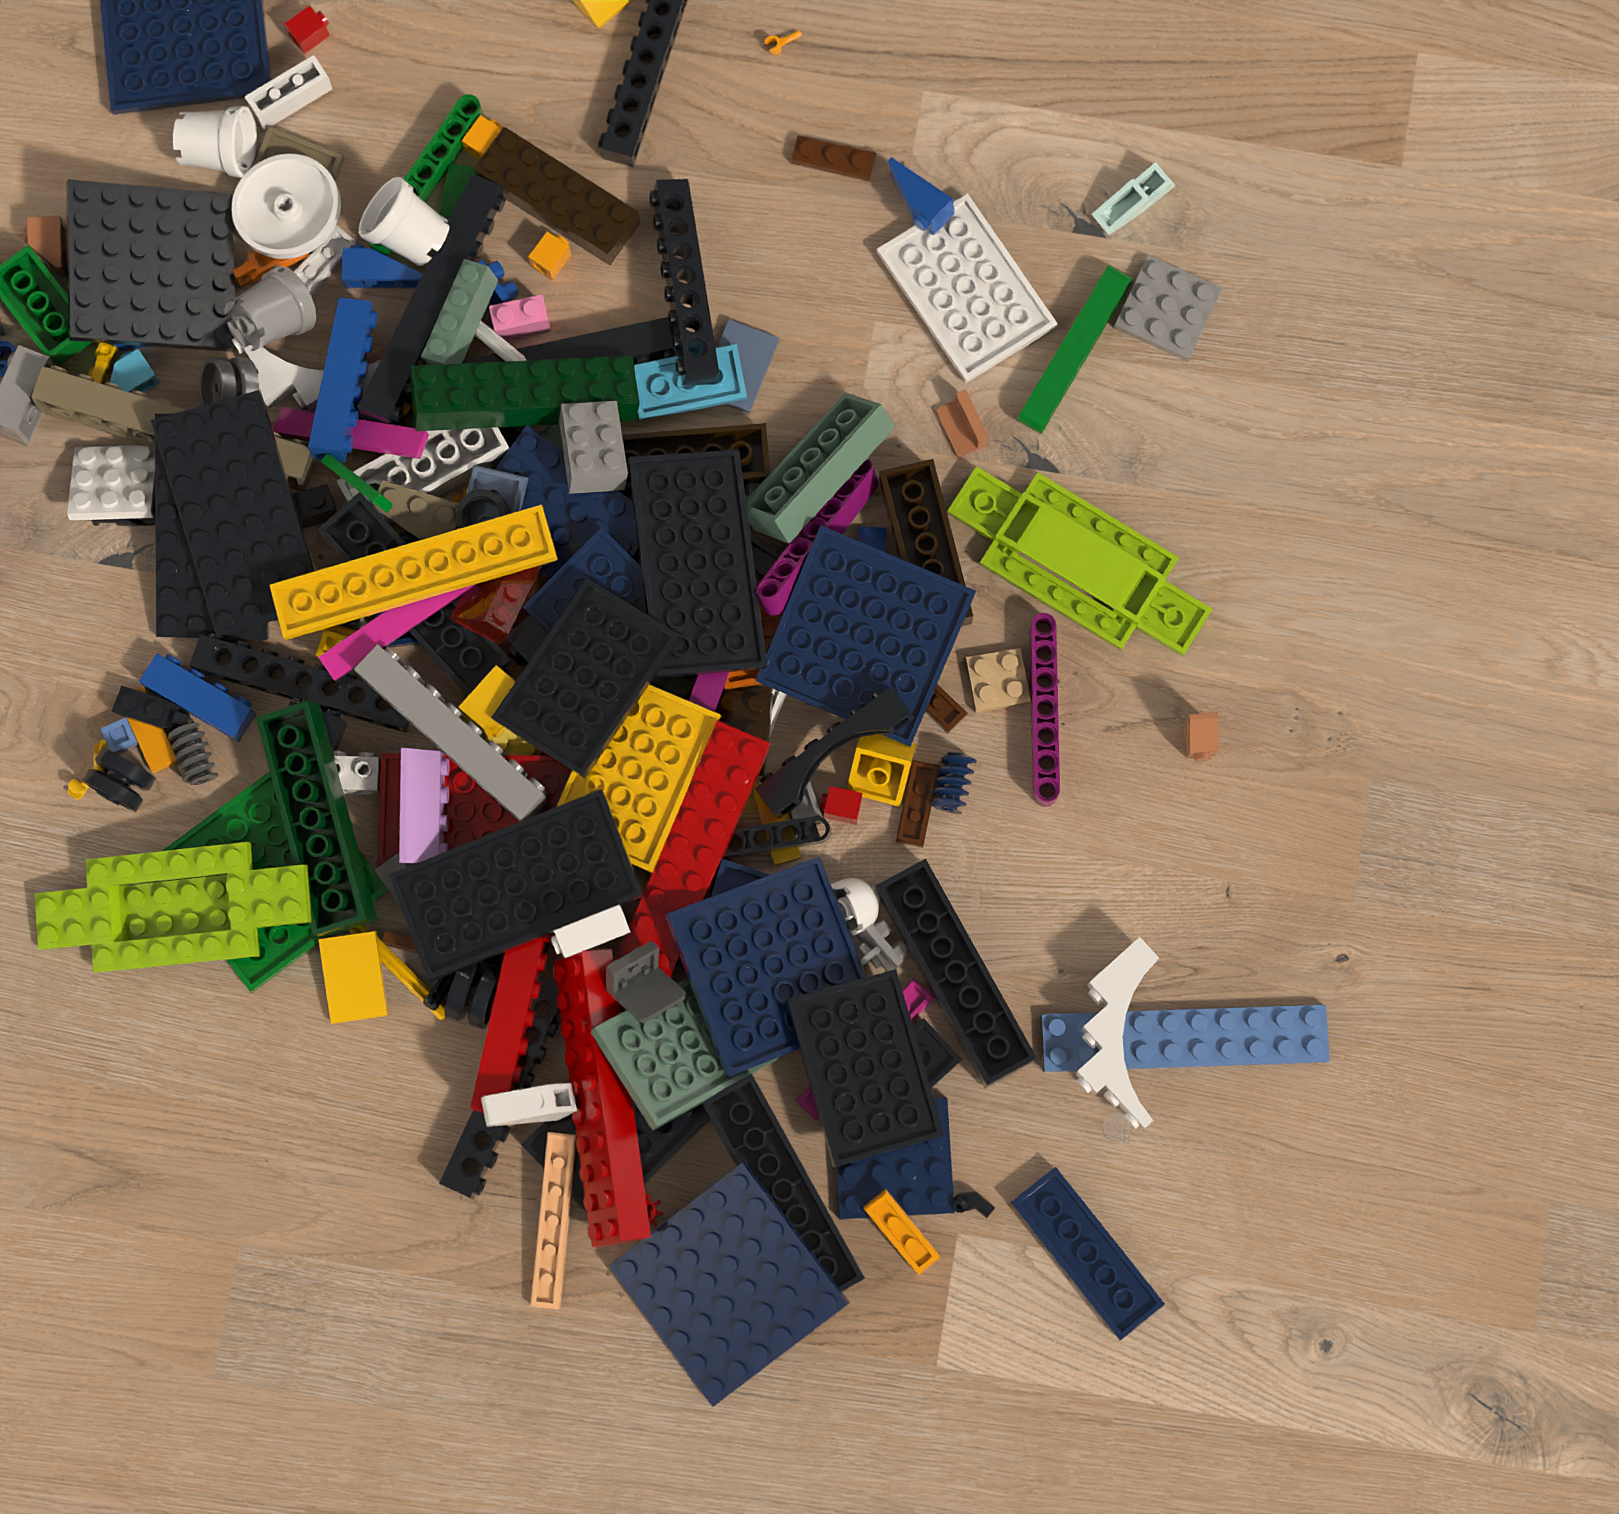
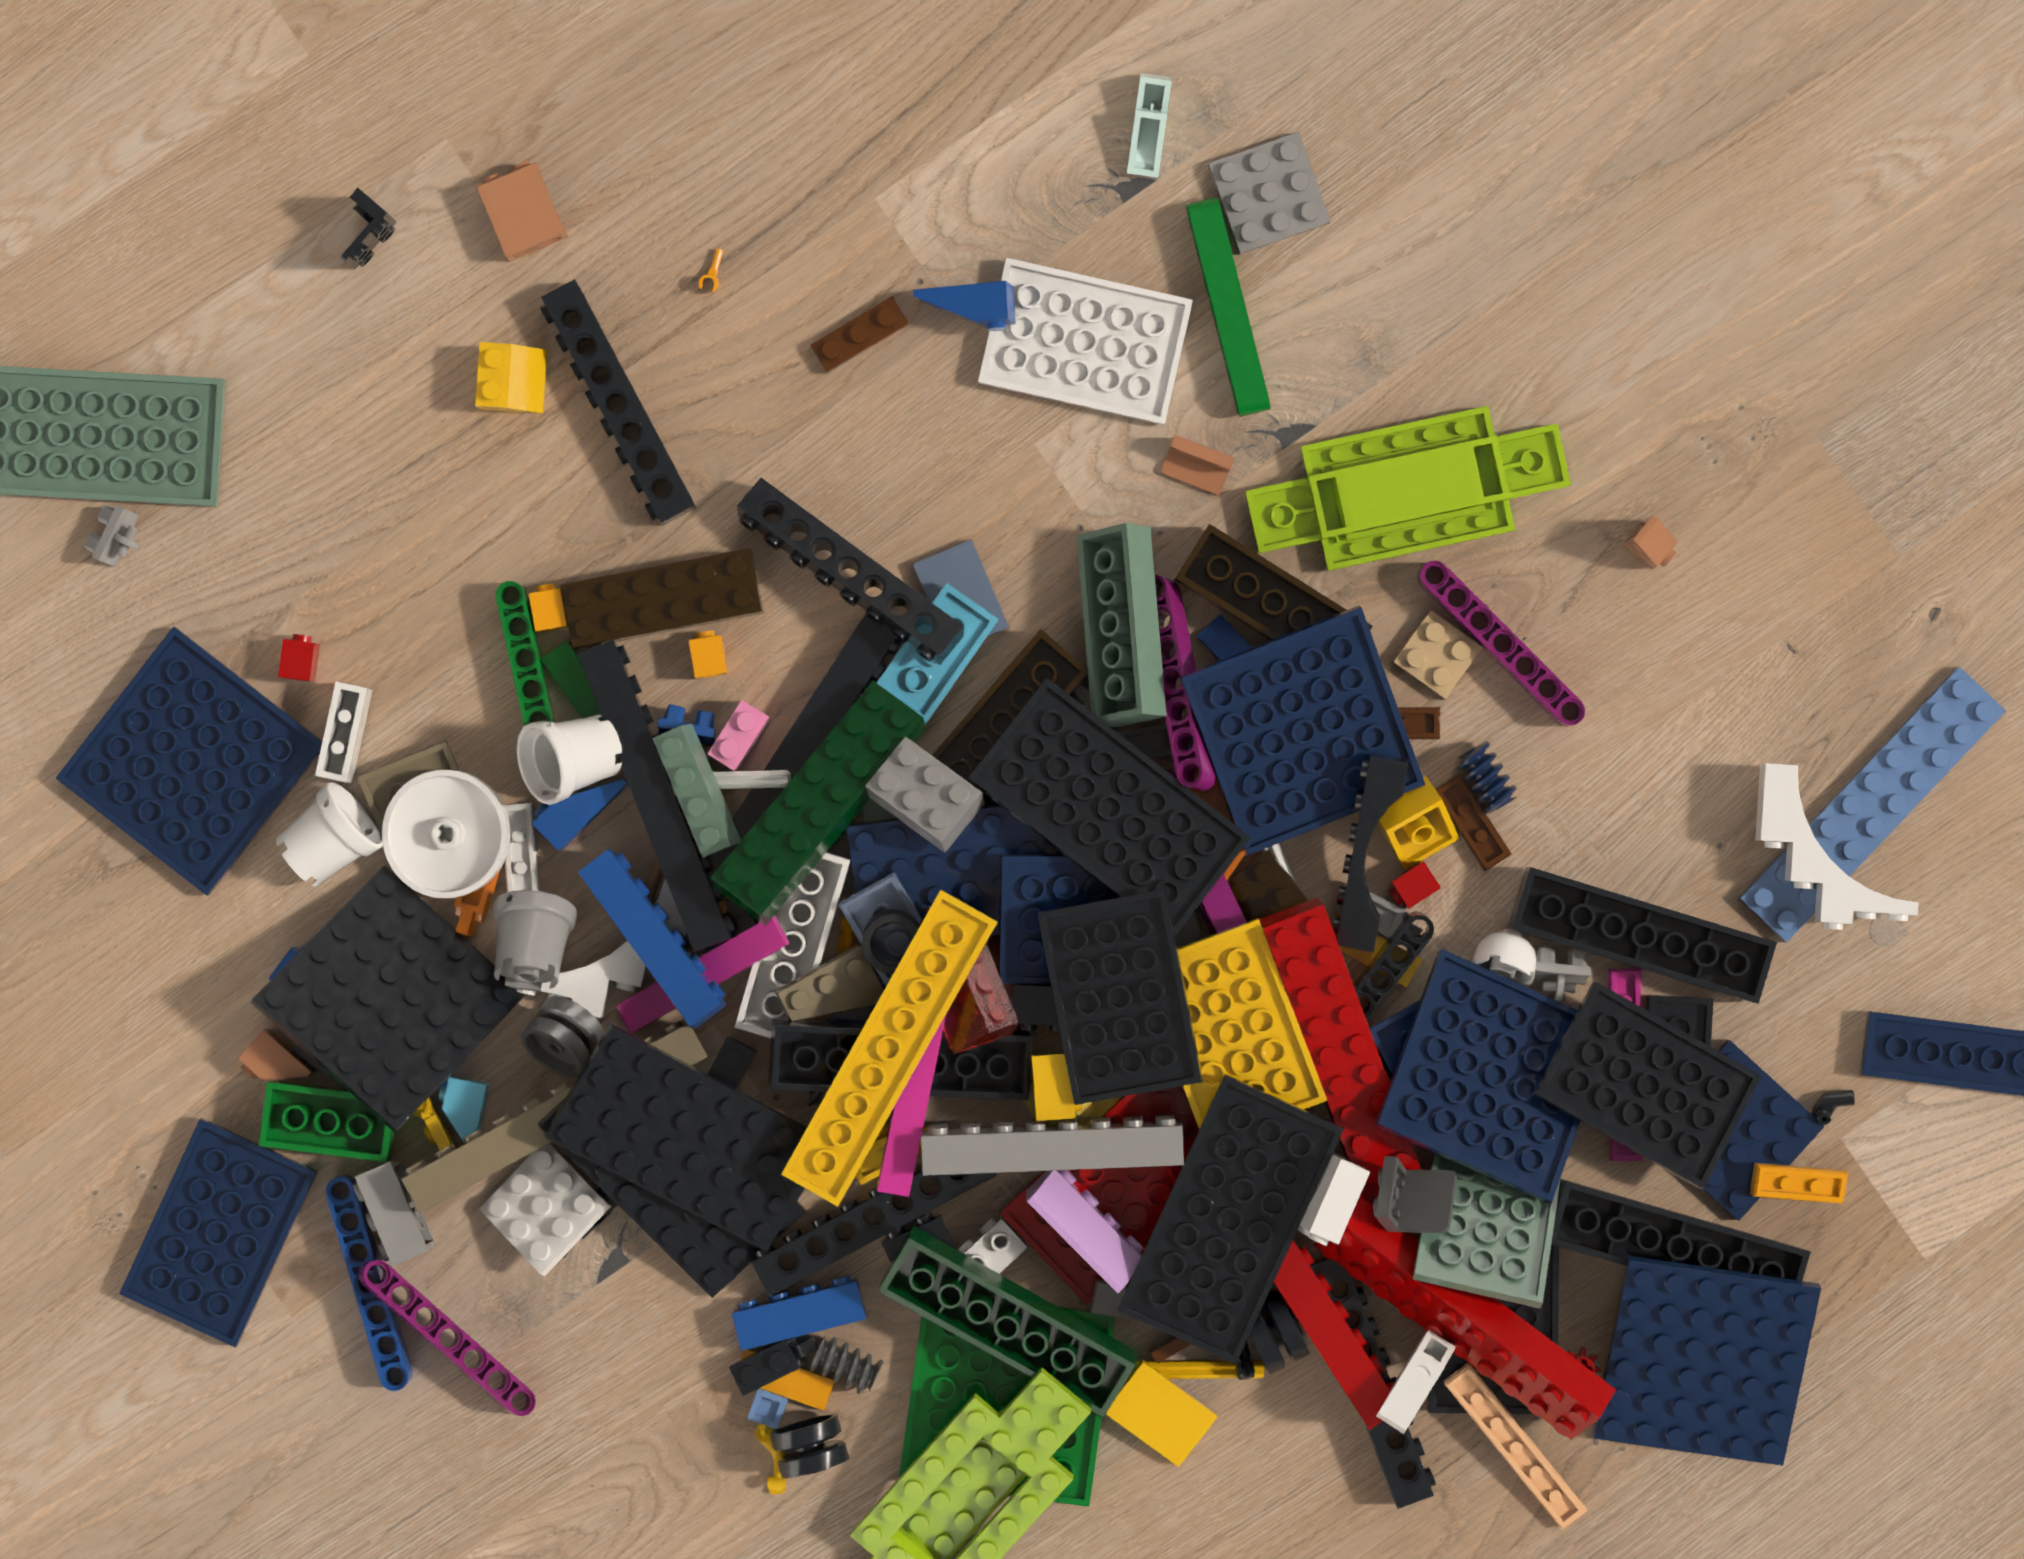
camera: 45 degrees left, 10 degrees up
(357, 482) = (760, 1016): green tile -> none

